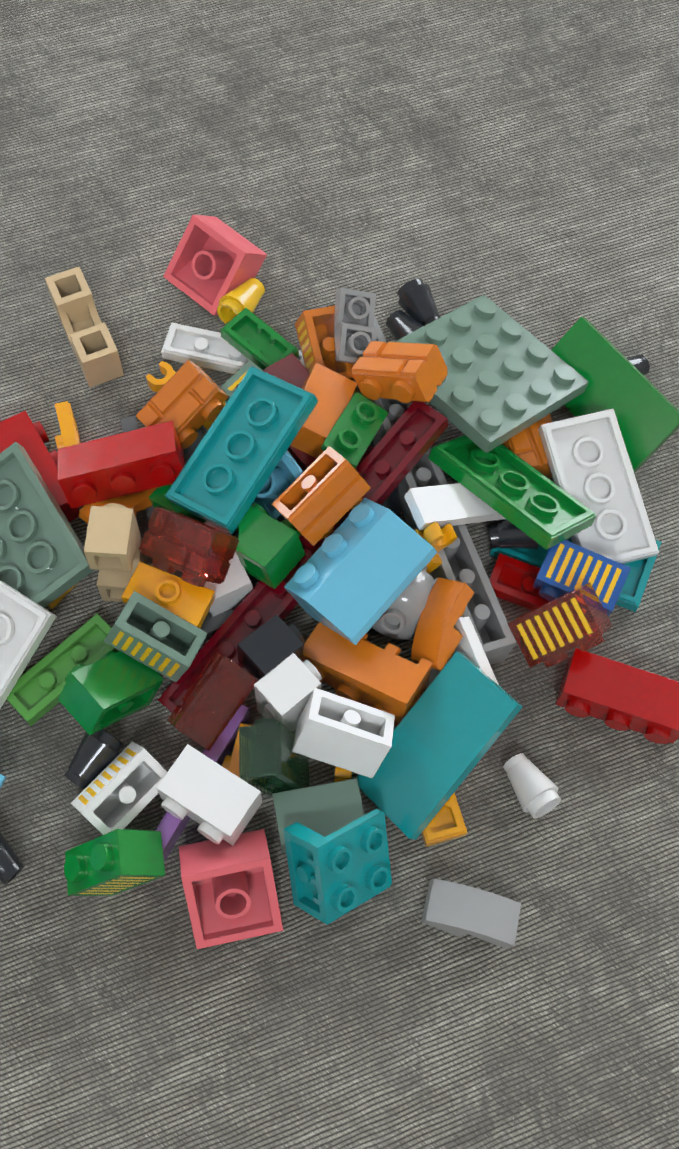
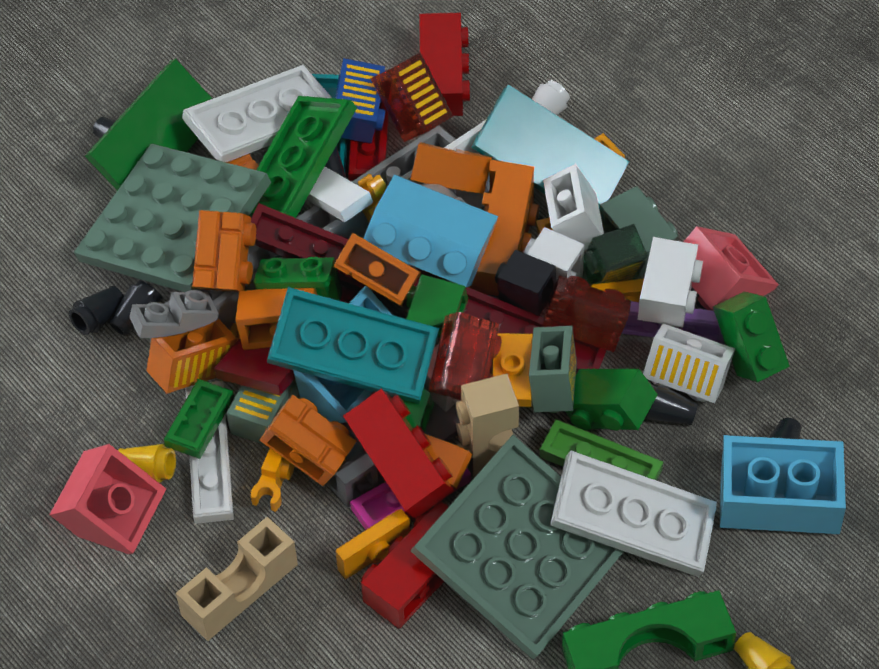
camera: 105 degrees left, 10 degrees down
(338, 870) = (686, 199): teal bracket -> none
(471, 911) = (662, 116): light grey slope -> none

